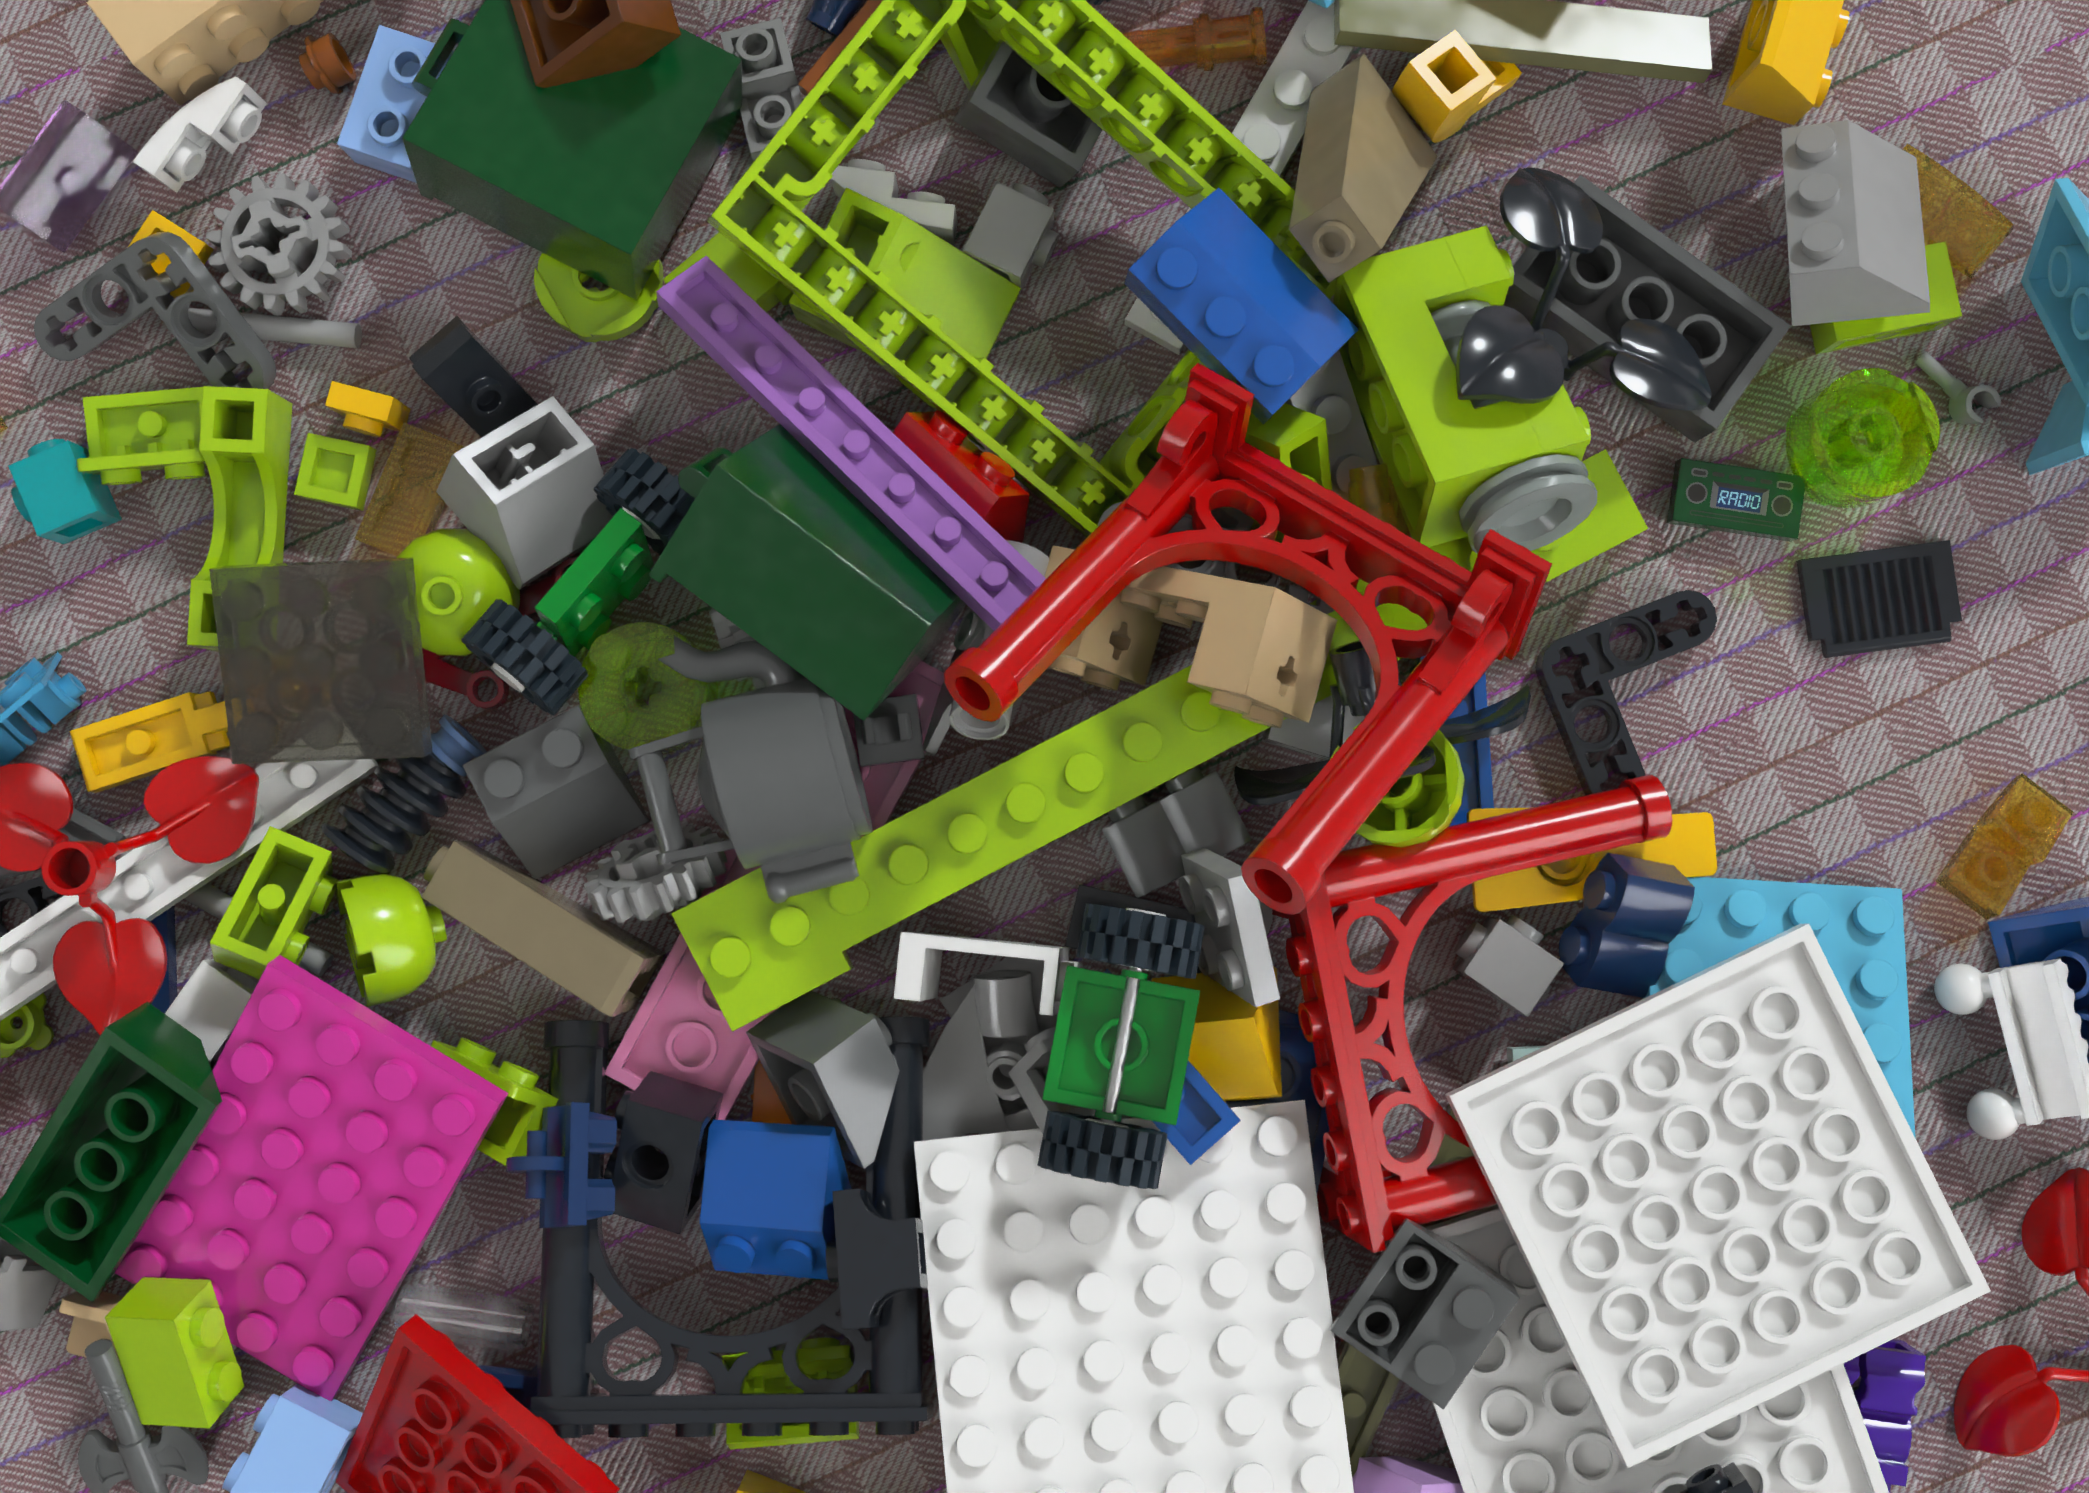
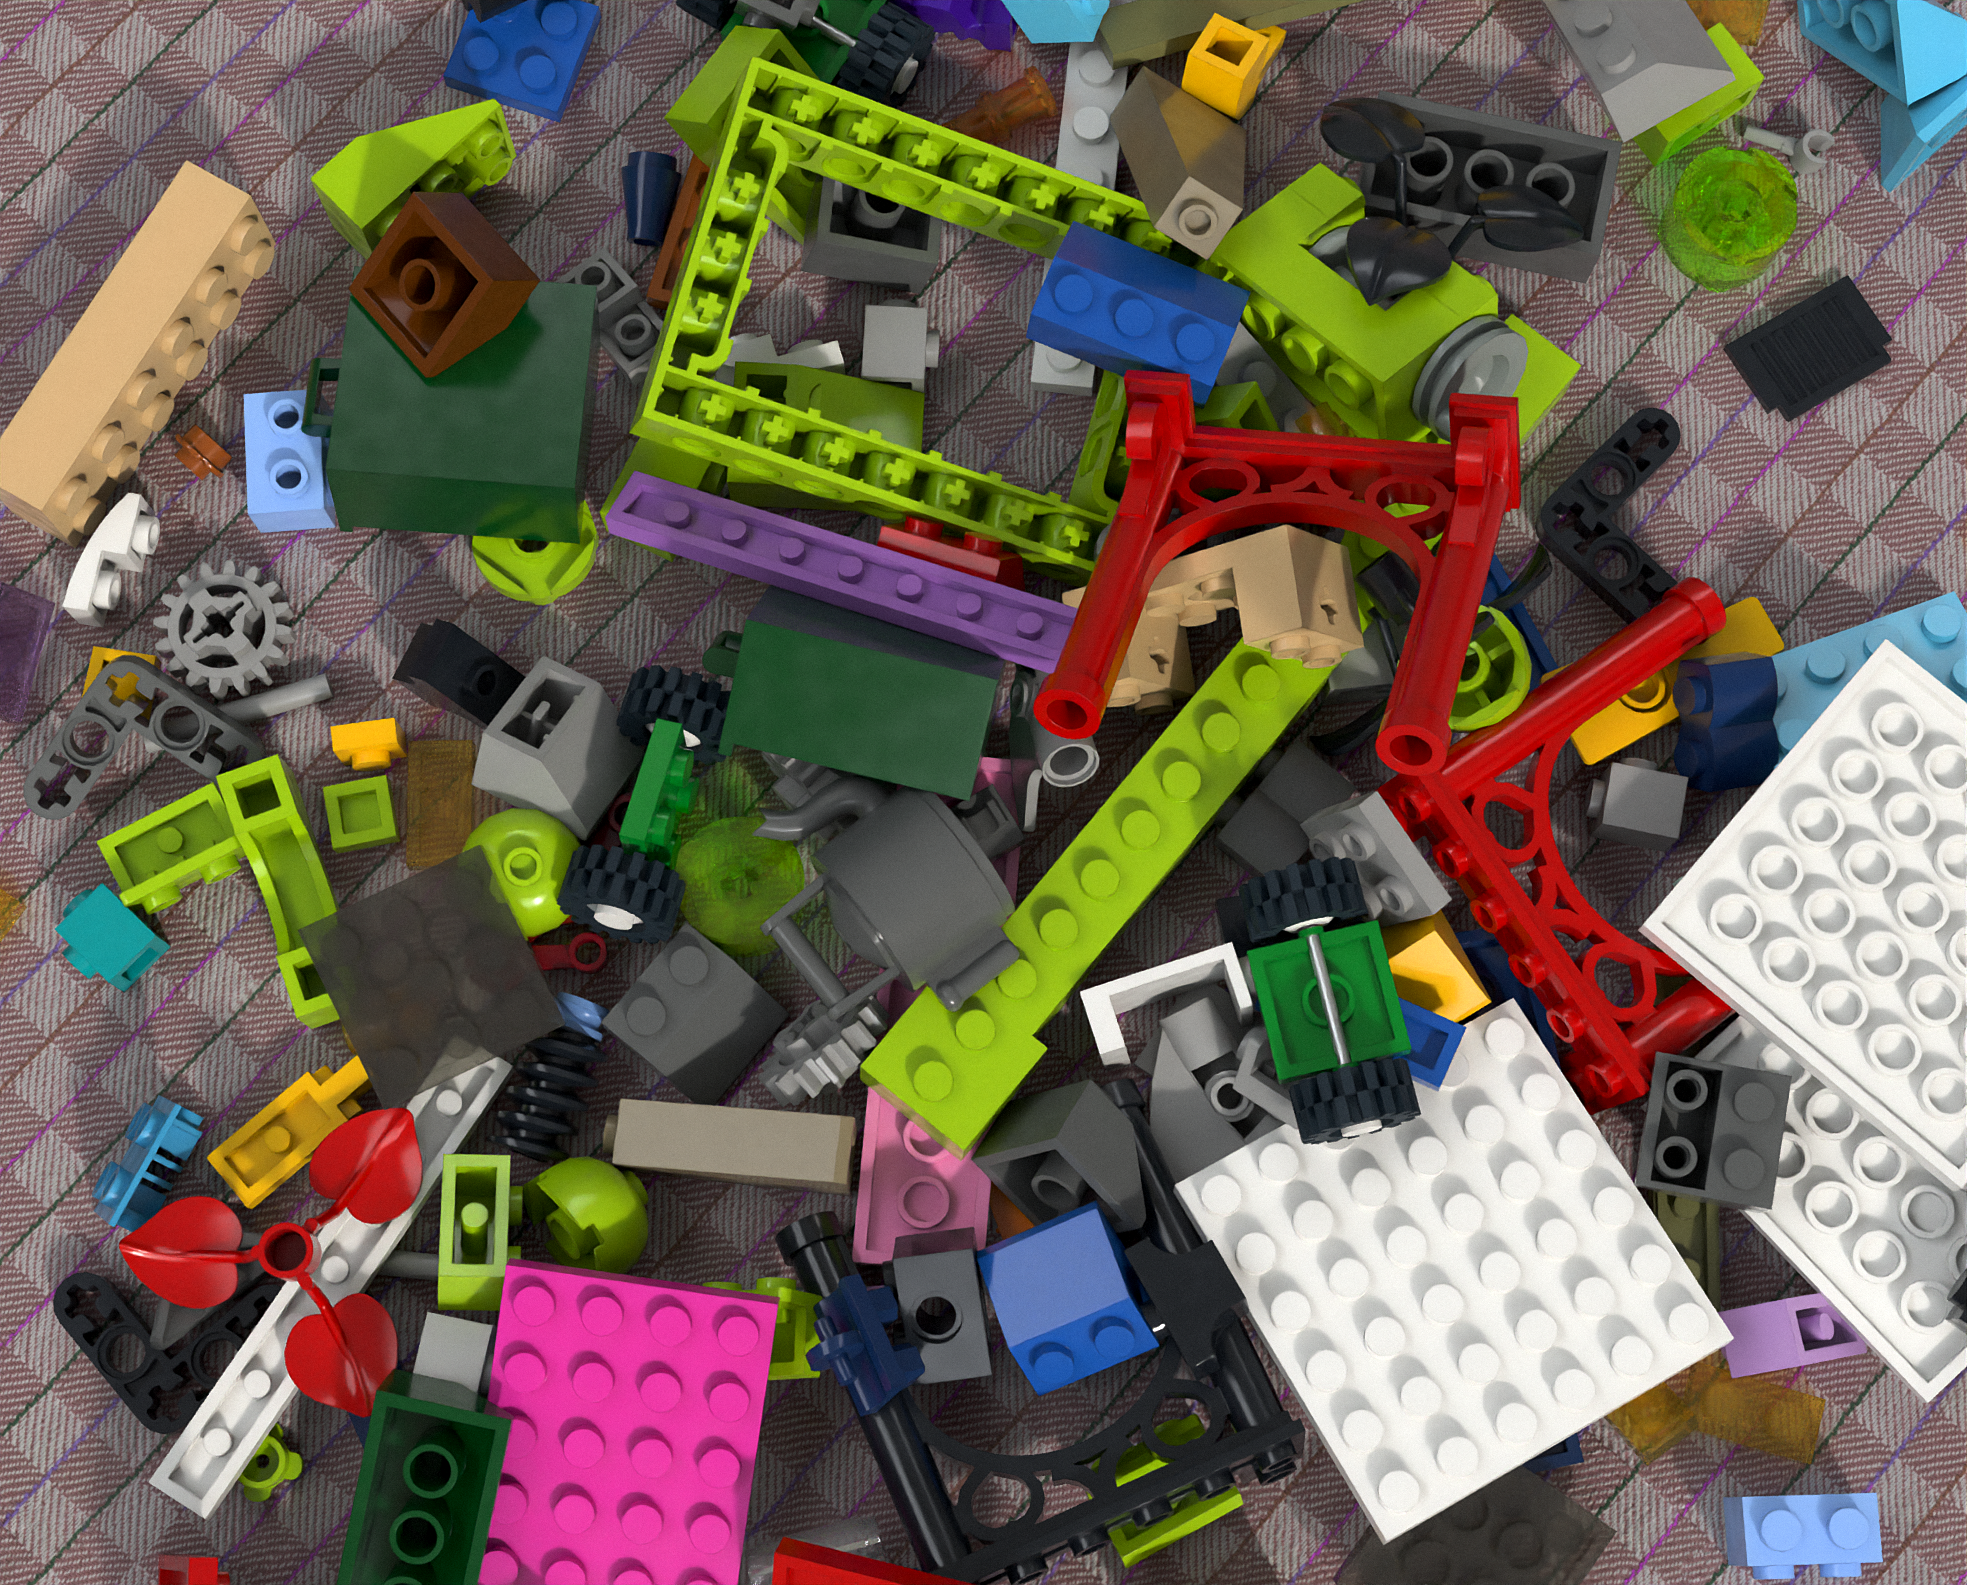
camera: 25 degrees left, 10 degrees down
(1736, 500) = (1645, 317): dark green tile -> none

